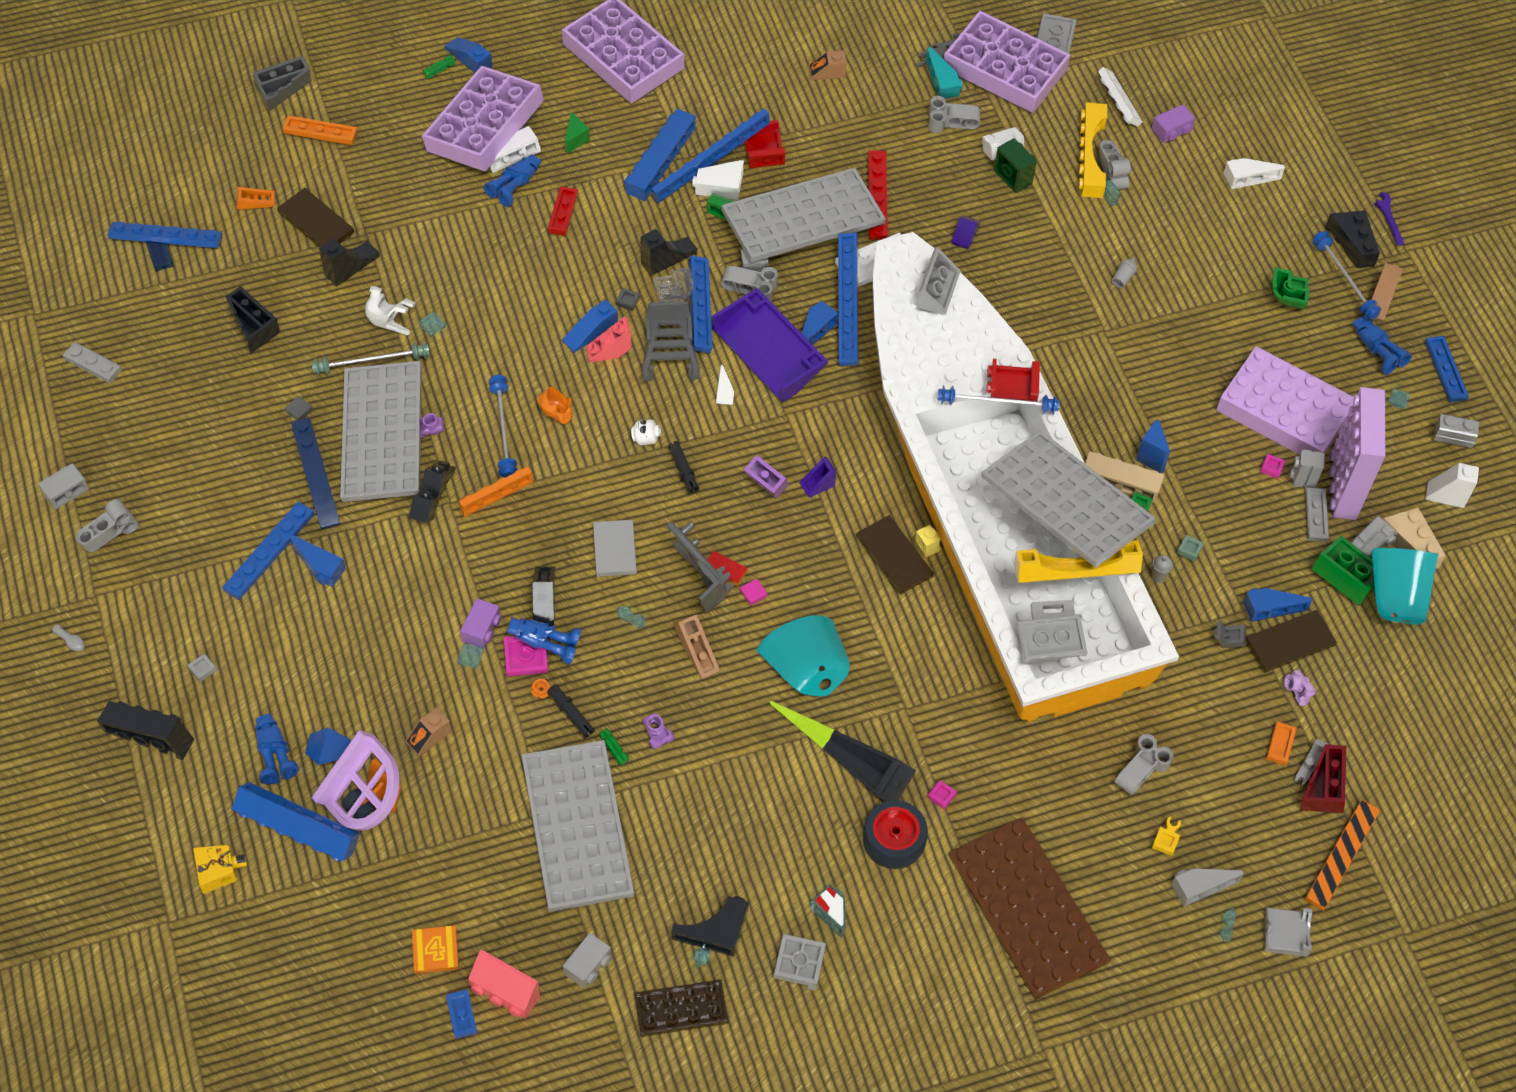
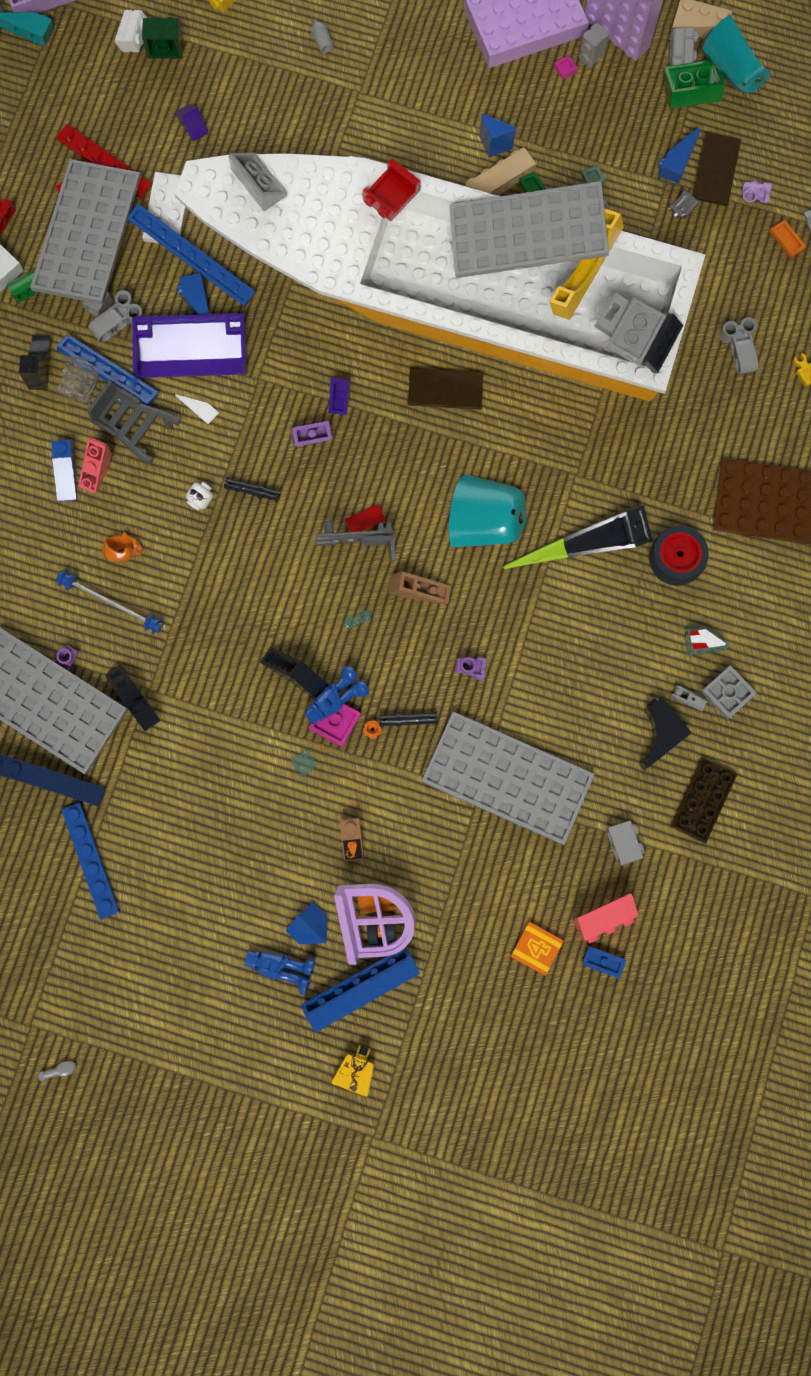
camera: 55 degrees left, 20 degrees up
(146, 728) = (192, 1058): black wedge -> none
(202, 667) = (163, 979): light grey tile -> none
(321, 563) = (137, 827): blue slope -> none
(480, 623) = (283, 738): medium lavender brick -> none
(496, 491) = (168, 640): orange plate -> none
(614, 548) = (286, 591): light grey tile -> none
(614, 747) = (460, 707): green axle -> none
(627, 299) = (57, 423): dark grey tile -> none
(702, 956) = (678, 758): clear light blue plate -> none
(753, 592) = (401, 514): dark pink tile -> none
(769, 934) = (692, 699): none -> light grey bar
(930, 539) = (454, 354): light yellow brick -> none
(942, 794) = (664, 500): dark pink tile -> none
(952, 115) = (71, 48): light grey piece -> none
(1046, 404) = (429, 183): axle -> none
(1061, 667) = (663, 343): none -> black plate
(1316, 514) = (627, 69): light grey tile -> none

